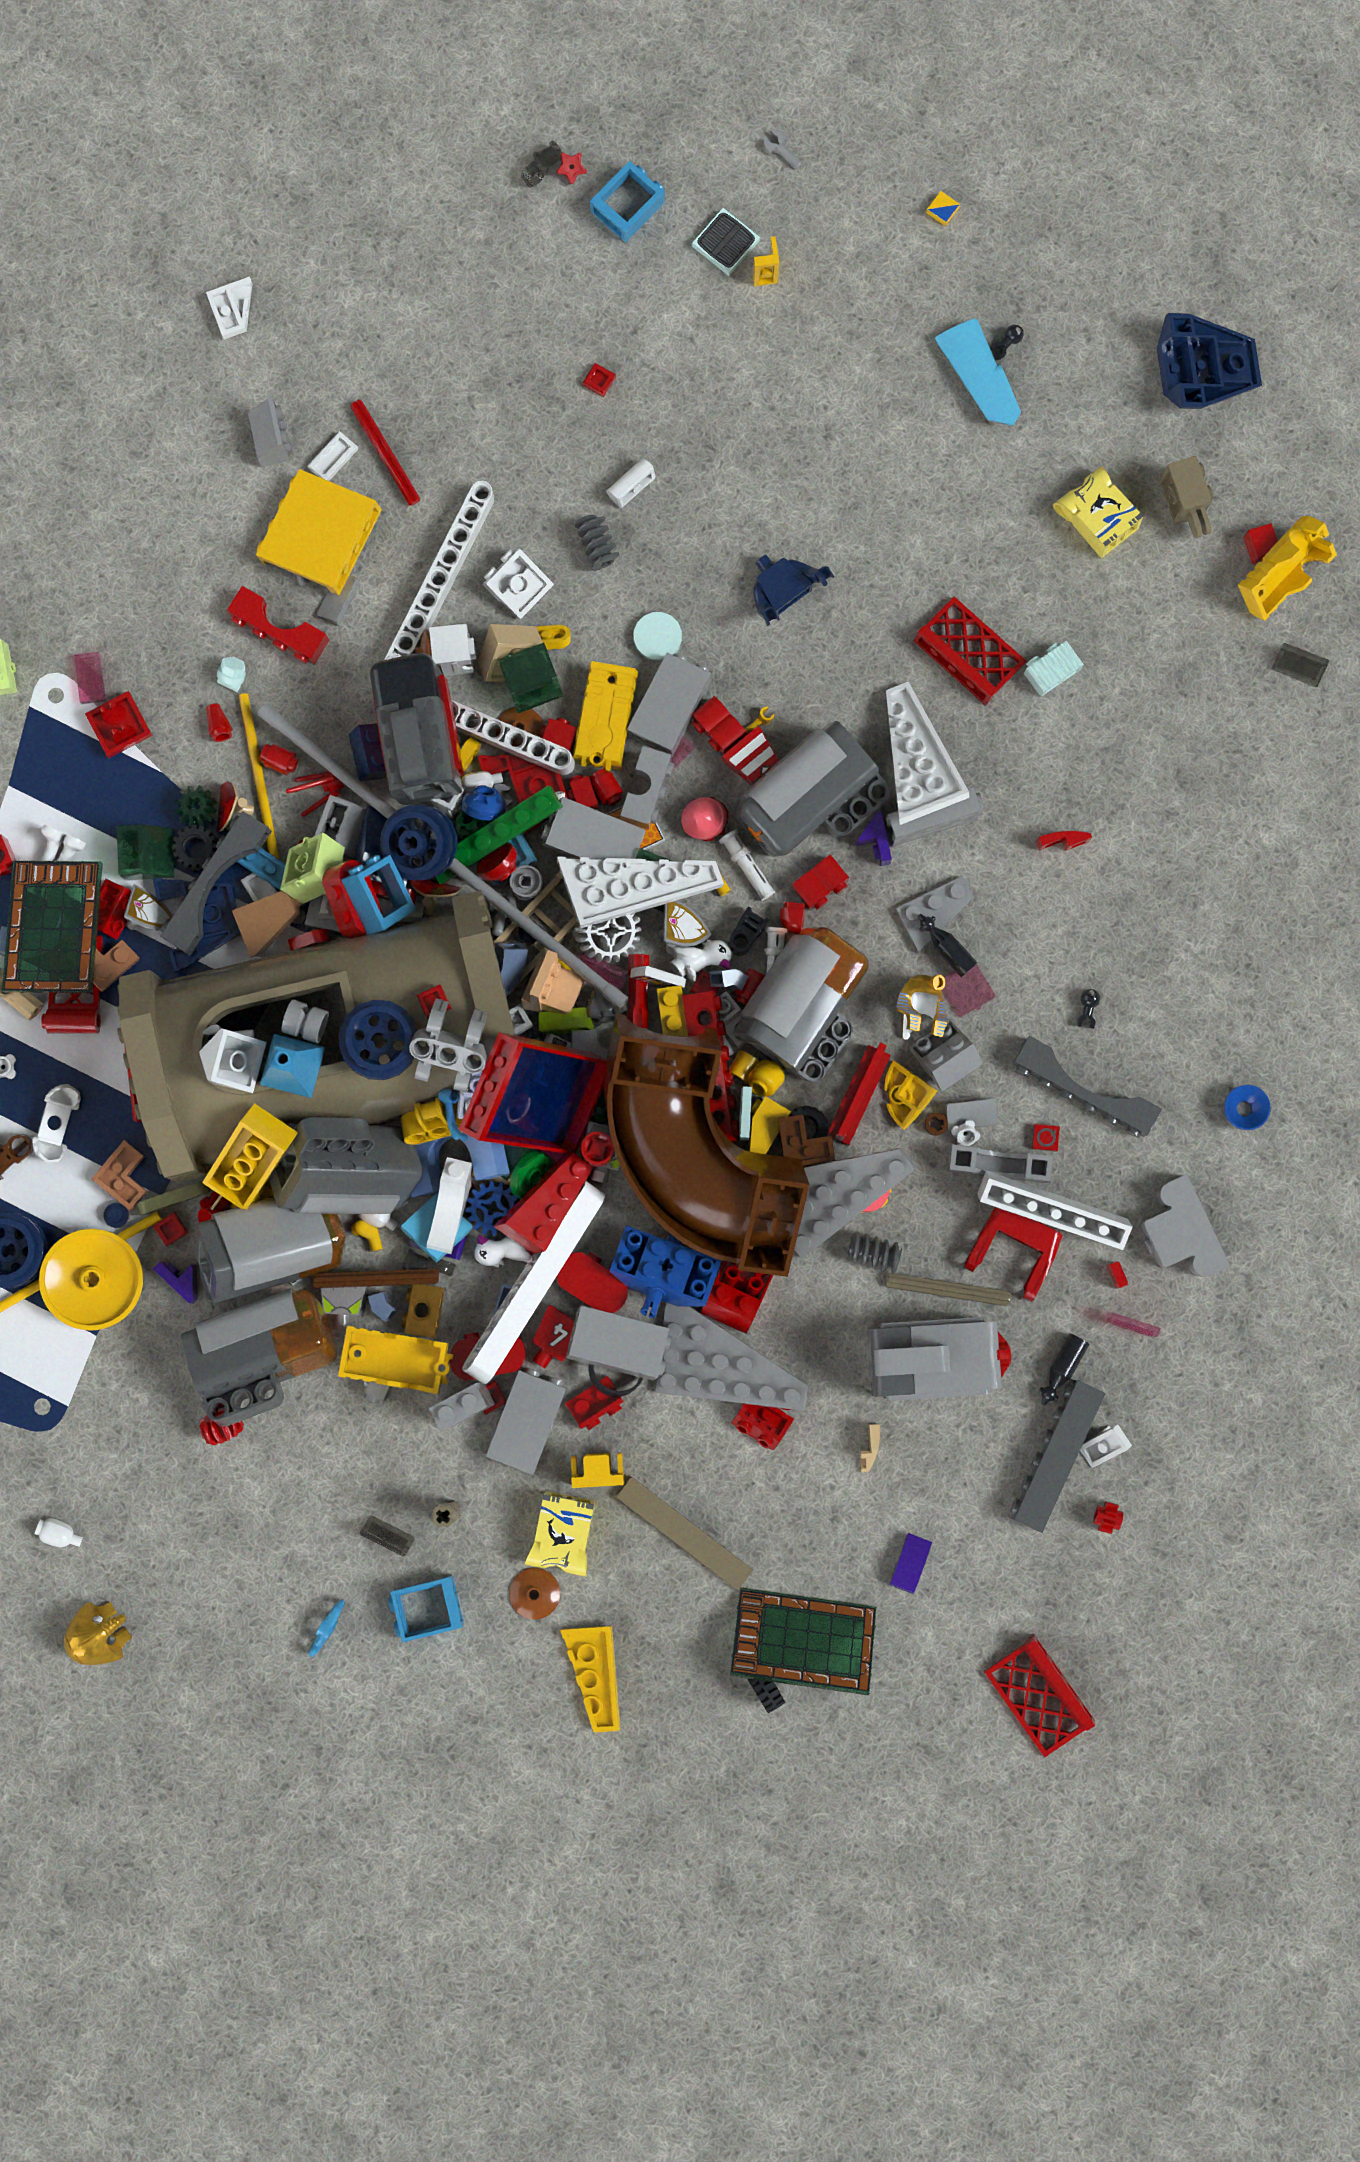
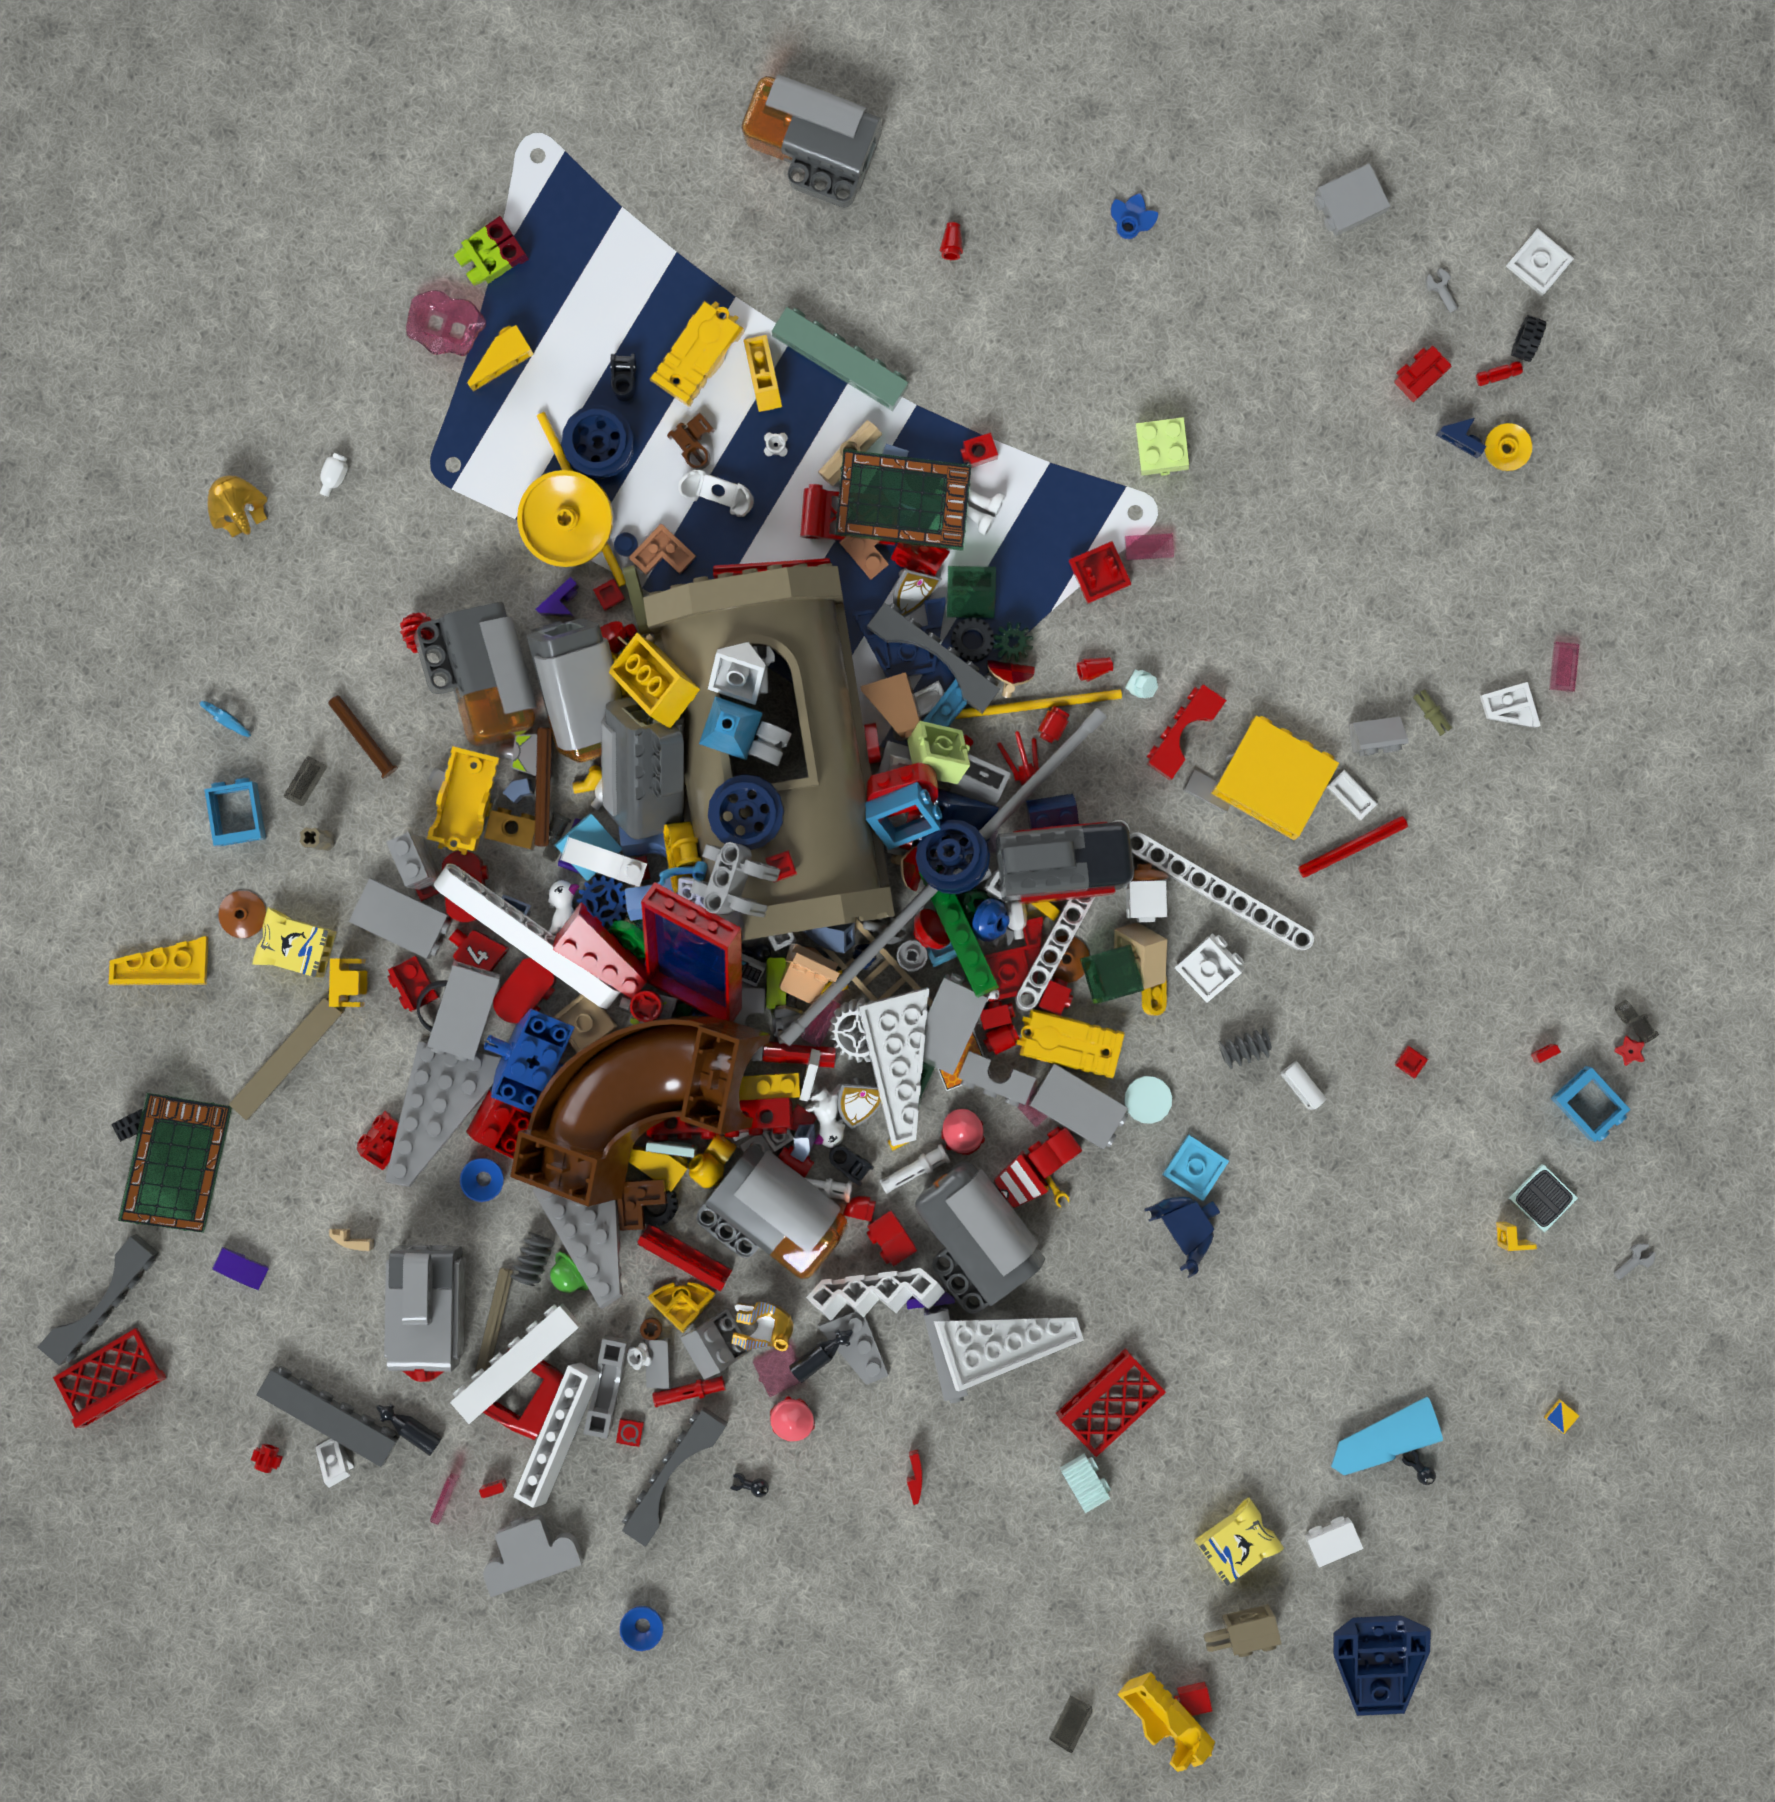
camera: 90 degrees right, 5 degrees up
(189, 259) = (1564, 666): none -> clear pink tile
(243, 383) = (1432, 712): none -> olive pin
(336, 1479) = (362, 736): none -> reddish brown axle
(579, 248) = (1545, 1053): none -> red tile
(620, 1211) = (589, 1022): none -> tan tile
(723, 584) = (1195, 1167): none -> medium azure tile
(809, 1312) = (470, 1185): none -> blue piece
(877, 905) = (864, 1291): none -> white brick
(886, 1212) = (566, 1275): none -> bright green hat
(913, 1682) = (130, 1261): none -> dark grey arch
(983, 1258) = (516, 1363): none -> white brick
(997, 1079) = (697, 1389): none -> red pin
(1016, 970) = (792, 1419): none -> coral hair
(1089, 419) = (1333, 1541): none -> white brick

